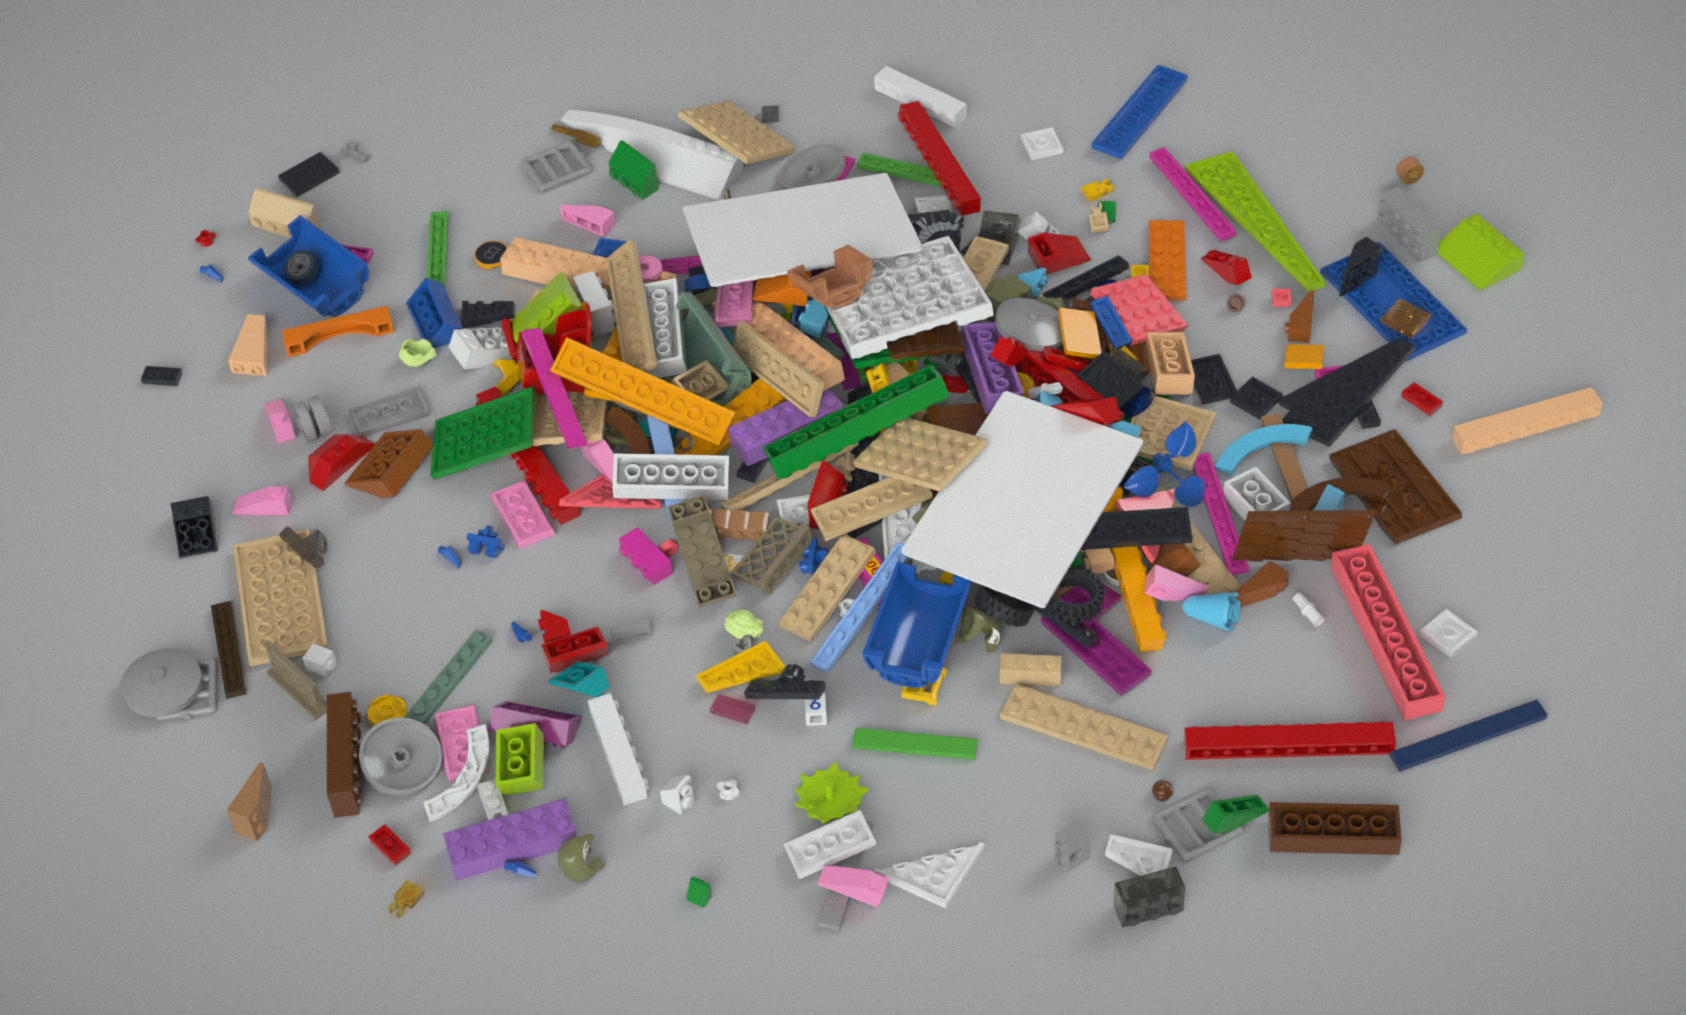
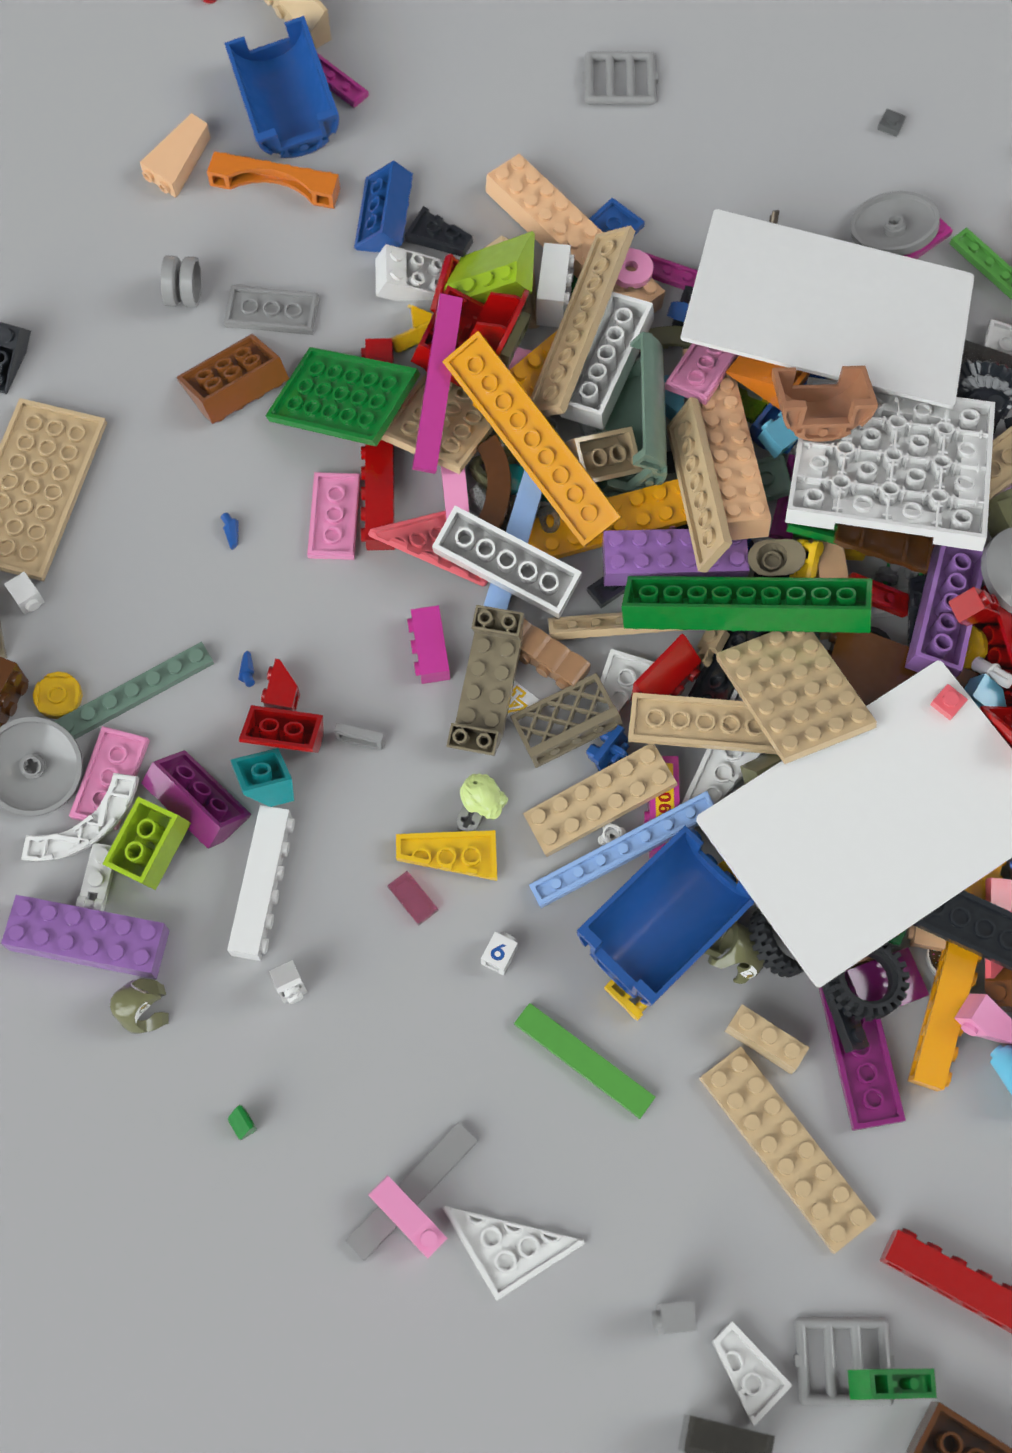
camera: 25 degrees right, 20 degrees up
(161, 376) = (71, 144): black plate -> none
(211, 272) = (191, 39): blue bar -> none
(266, 501) = (82, 360): bright pink slope -> none
(279, 420) = (150, 261): bright pink slope -> none
(301, 267) = (278, 81): black wheel -> none
(306, 546) = (87, 441): clear smoke piece -> none
(336, 458) = (184, 341): red wedge -> none
(416, 352) = (337, 249): yellowish green hair -> none
(438, 246) = (435, 125): bright green plate -> none
(487, 539) = (264, 529): blue hips -> none
(489, 254) = (485, 157): black tile -> none
(519, 868) = (77, 978): blue bar -> none
(581, 136) = (666, 53): pearl gold piece -> none
(592, 218) = (617, 165): bright pink slope -> none
(633, 170) = (695, 128): green slope -> none
(669, 547) = (460, 647): coral tile -> none
(677, 157) = (742, 118): white wedge -> none
(728, 794) = (352, 1009): white plate -> none
(737, 132) = (837, 132): tan plate -> none
(788, 686) = (482, 908): black plate -> none
(829, 844) = (412, 1147): white plate -> none
(830, 794) = (452, 1076): lime piece -> none
(858, 387) = (776, 557): none -> dark tan piece
(1026, 409) = (949, 702): none -> coral plate
(1162, 790) = (827, 1292): reddish brown plate -> none

